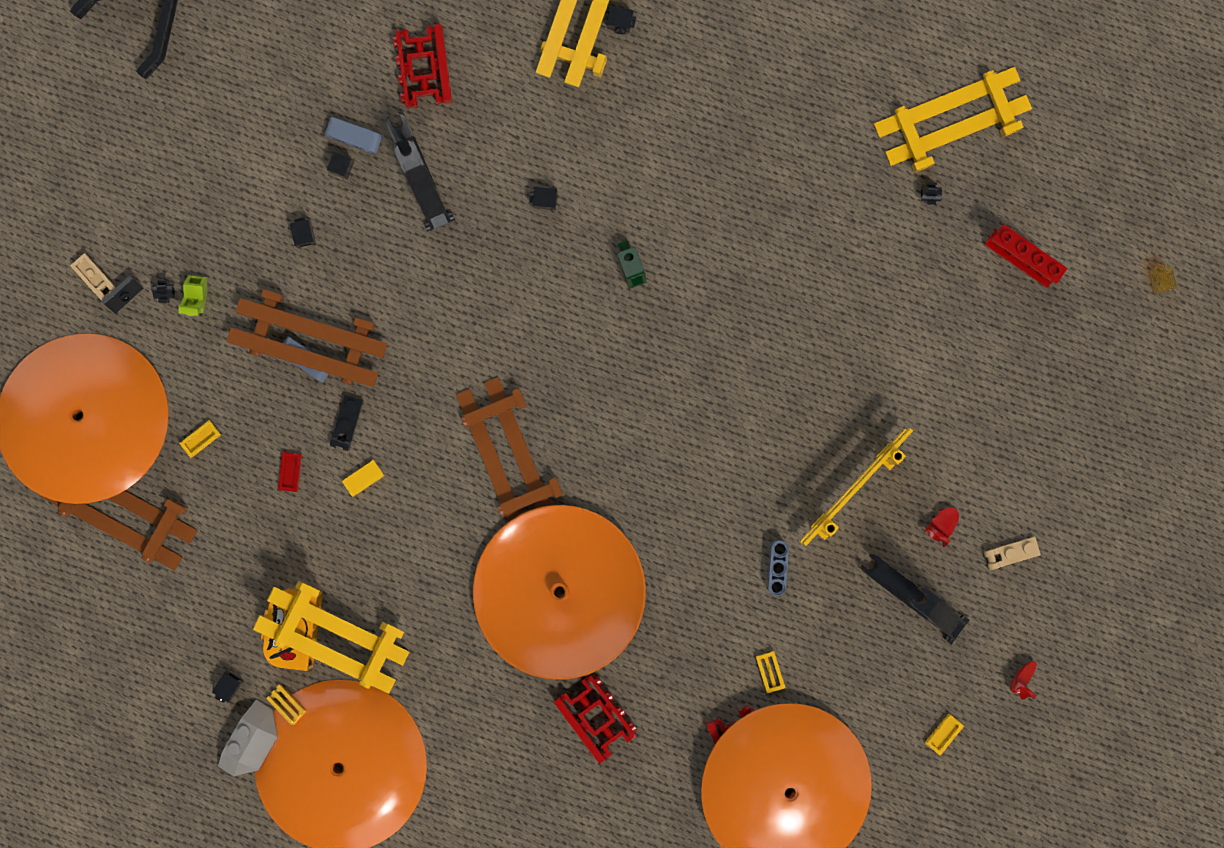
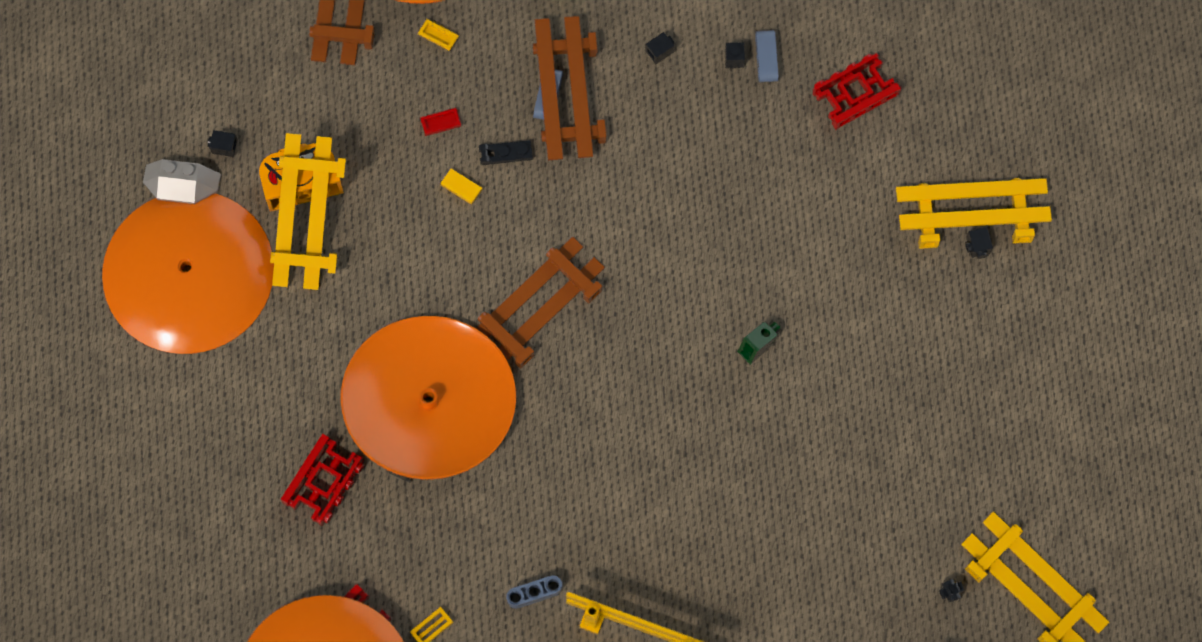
camera: 65 degrees right, 15 degrees down
(275, 694) = (232, 188): yellow tile -> none
(418, 174) = (755, 120): black piece -> none
(544, 198) = (785, 241): black brick -> none

